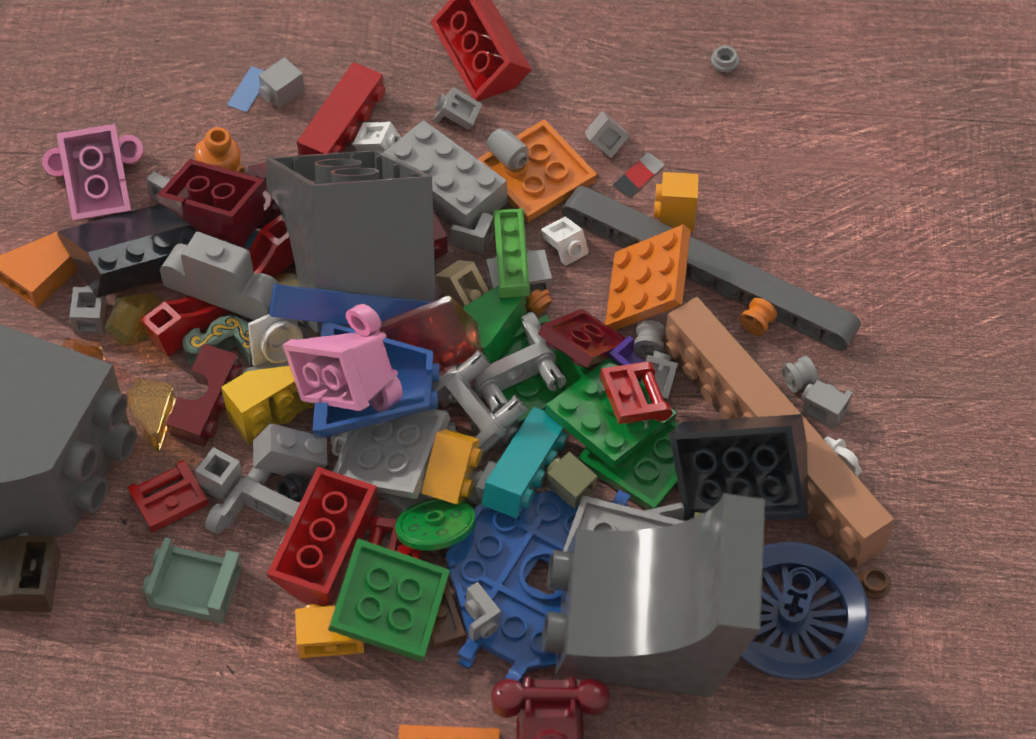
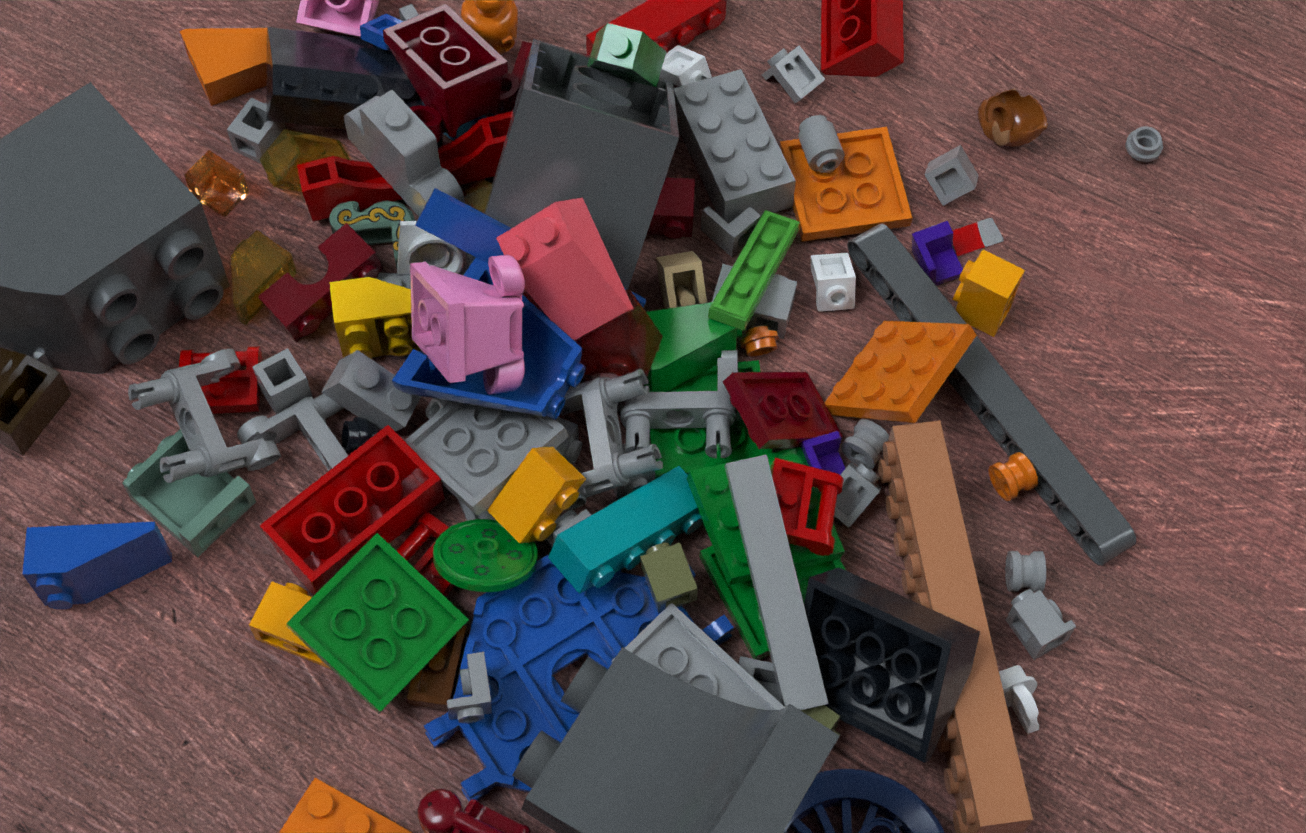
camera: 25 degrees right, 5 degrees up
(144, 199) = (373, 30): none -> blue plate
(154, 653) = (90, 560): none -> blue slope
(194, 540) = (207, 447): none -> light grey connector
(342, 140) = (627, 54): none -> green slope
(402, 297) = (567, 267): none -> coral slope
(625, 191) = (935, 253): none -> dark purple panel
(627, 78) = (1012, 118): none -> dark orange hair
(644, 444) = (775, 583): none -> light grey tile

